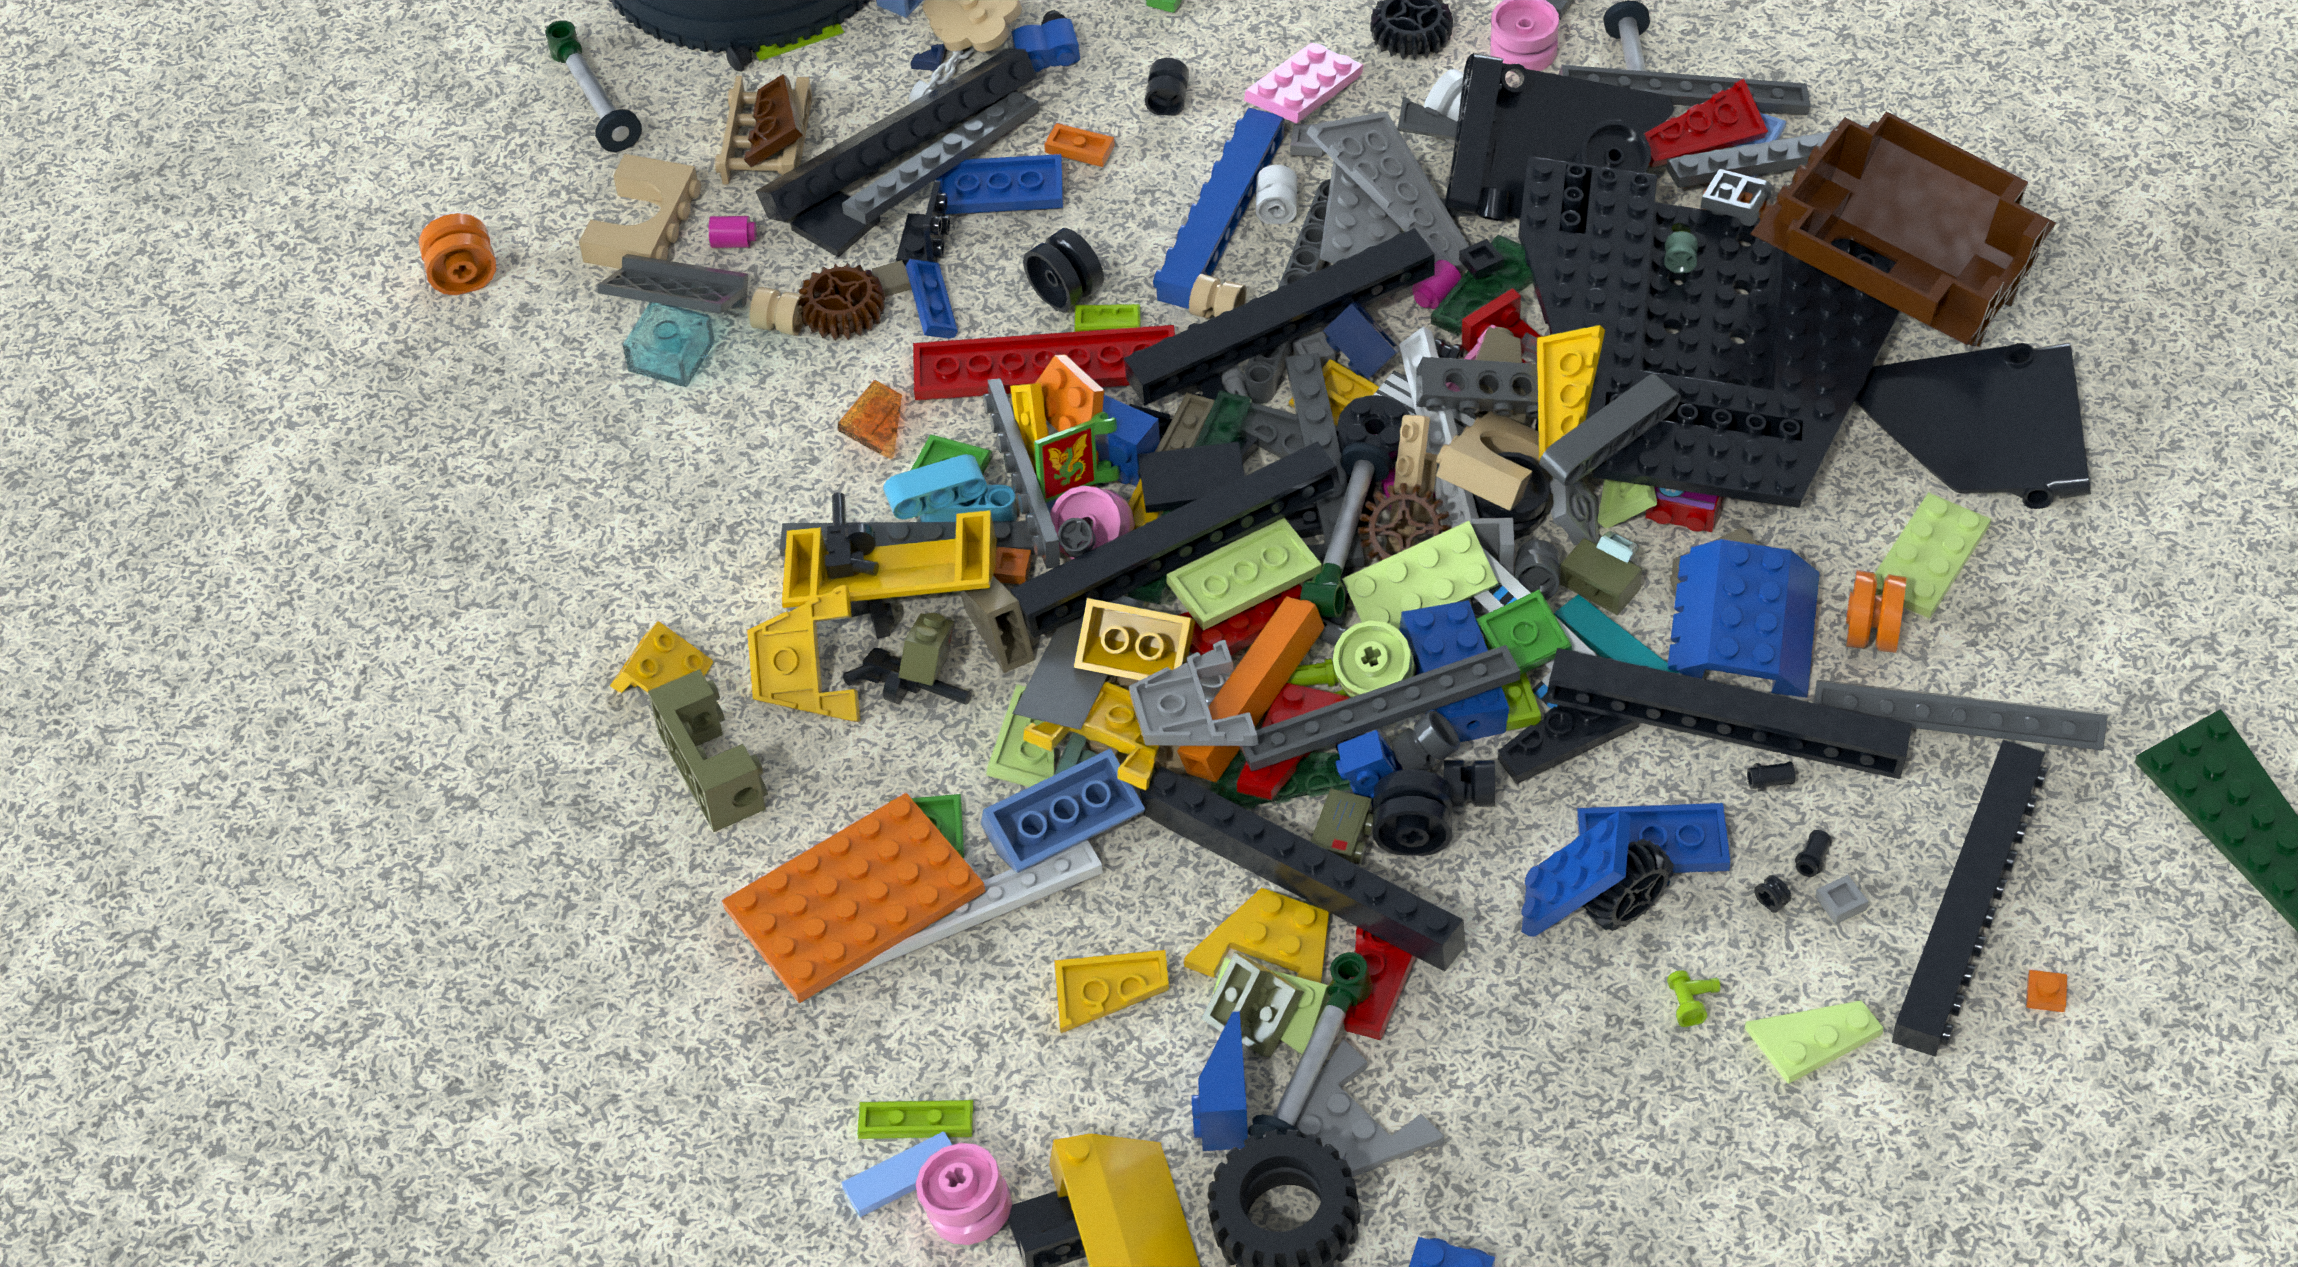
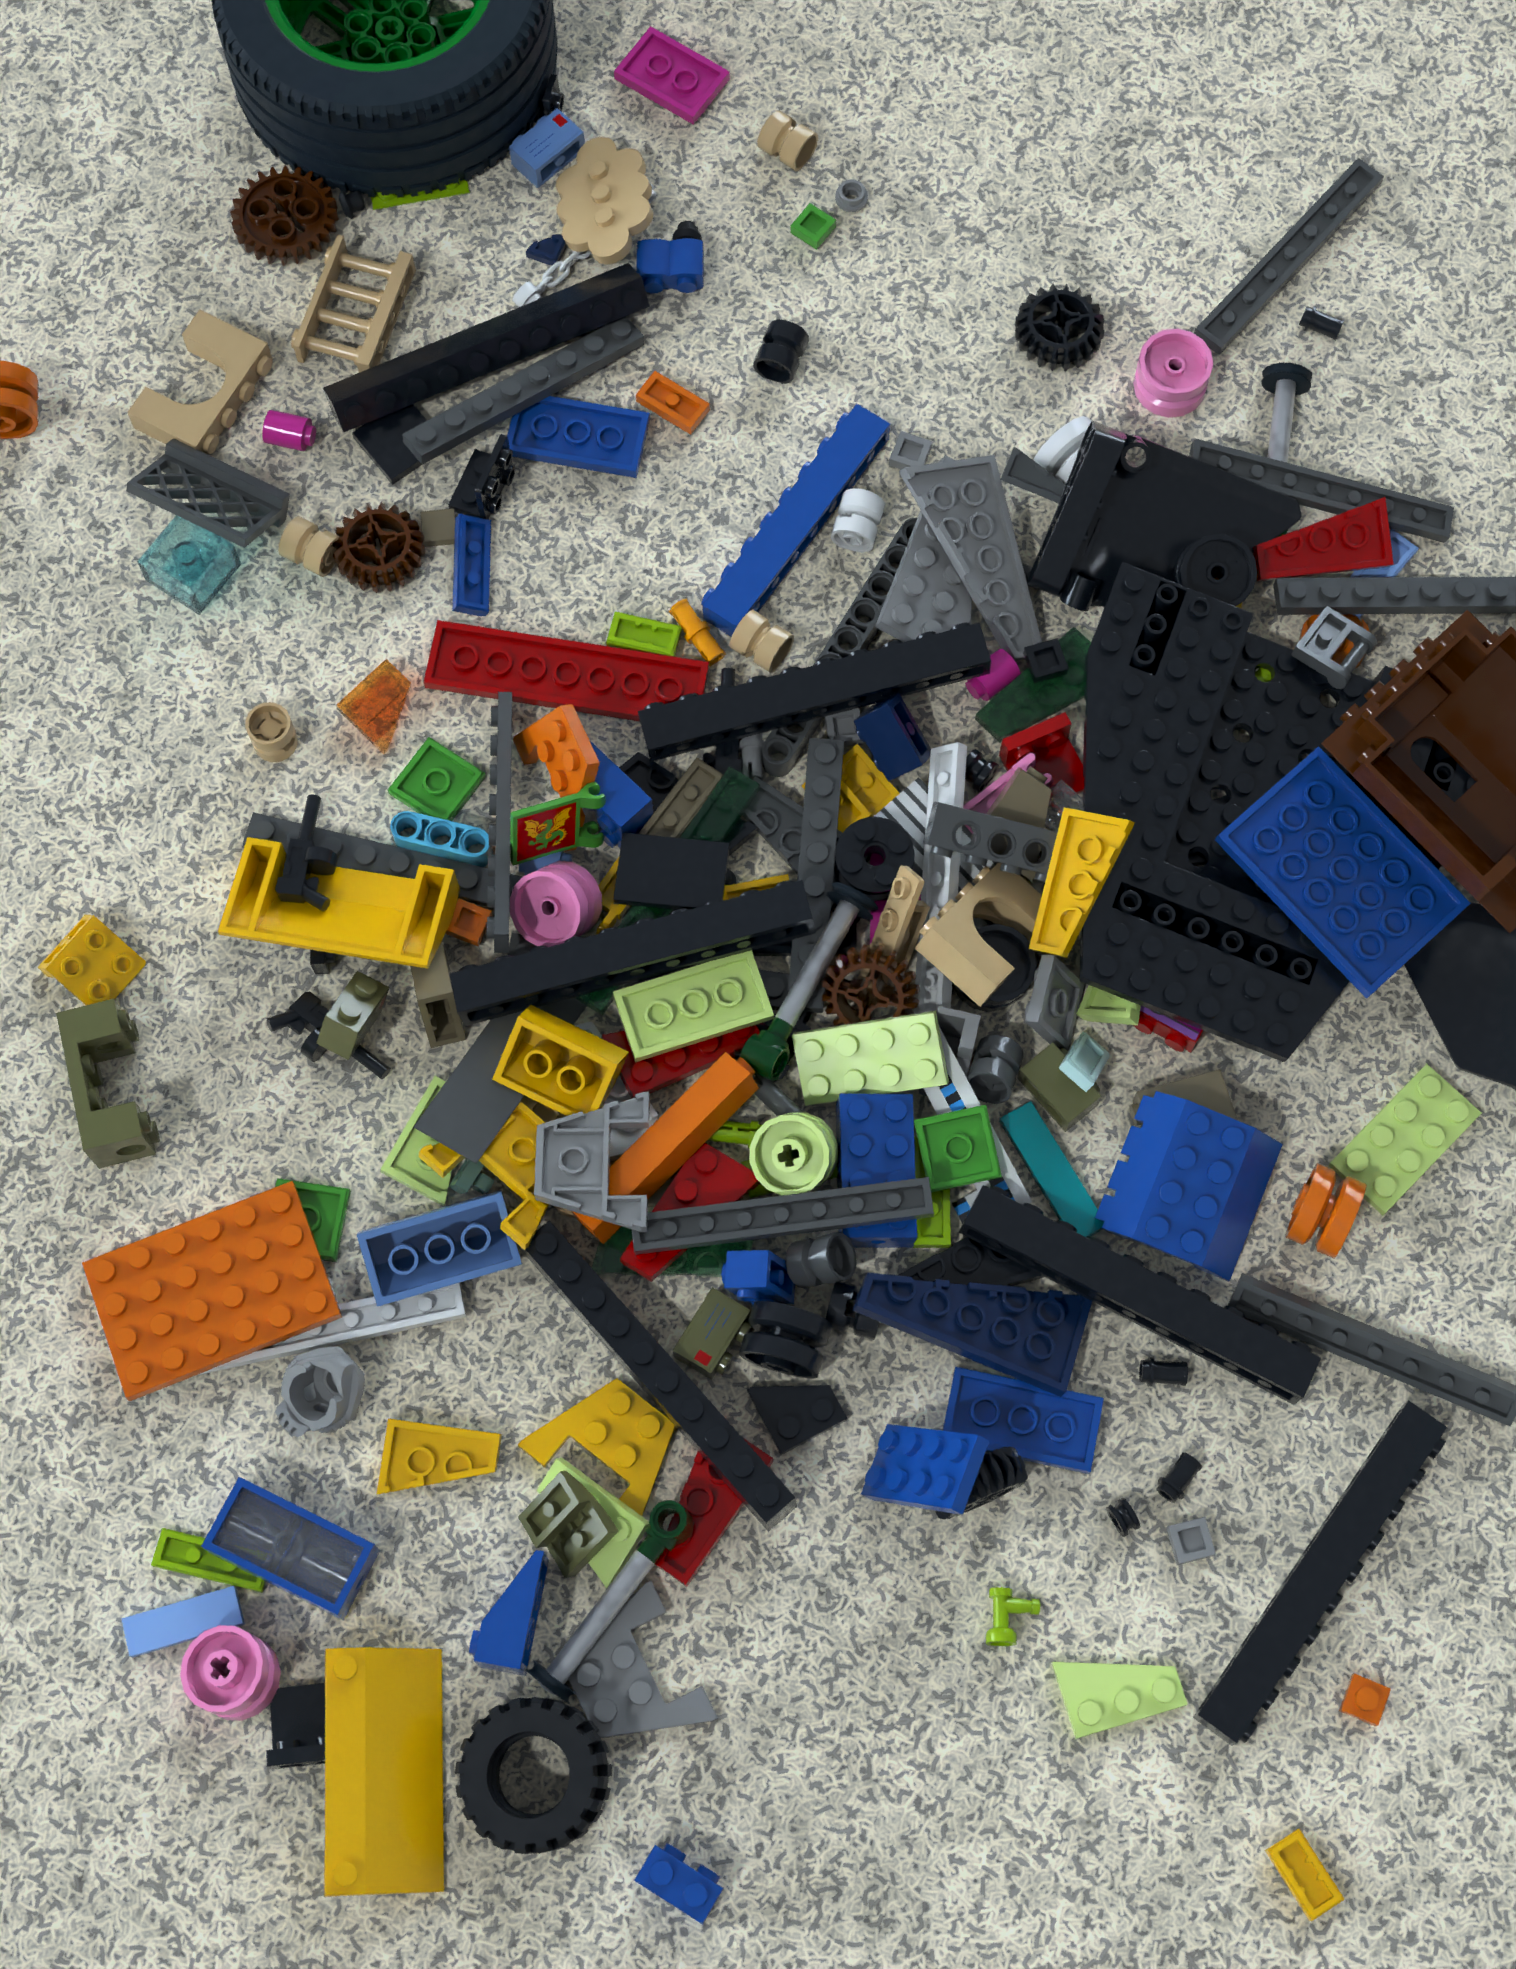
camera: 10 degrees right, 20 degrees up
(617, 128) = (200, 272): piece -> none
(680, 76) = (303, 198): none -> reddish brown gear
(776, 121) = (363, 306): reddish brown wing -> none
(783, 455) = (271, 732): none -> tan wheel
(788, 662) = (213, 994): yellow wing -> none
(934, 486) = (408, 821): medium azure beam -> none
(982, 950) = (320, 1391): none -> light grey helmet
(992, 1082) = (291, 1548): none -> clear brick
(1030, 415) = (525, 768): yellow hinge -> none
(1063, 269) = (610, 570): black wheel -> none
(1073, 533) = (525, 932): dark grey wheel -> none
(1155, 306) = (697, 632): none -> light orange pin
(1303, 82) = (924, 381): bright pink plate -> none
(1441, 879) = (796, 1412): none -> black wing
(1602, 762) = (996, 1325): none -> dark blue wing
(1609, 430) = (1107, 942): dark grey beam -> none
(1681, 252) = (1253, 711): sand green wheel -> none
(1802, 344) = (1342, 872): none -> blue plate
(2039, 1139) = (1304, 1874): none -> yellow plate

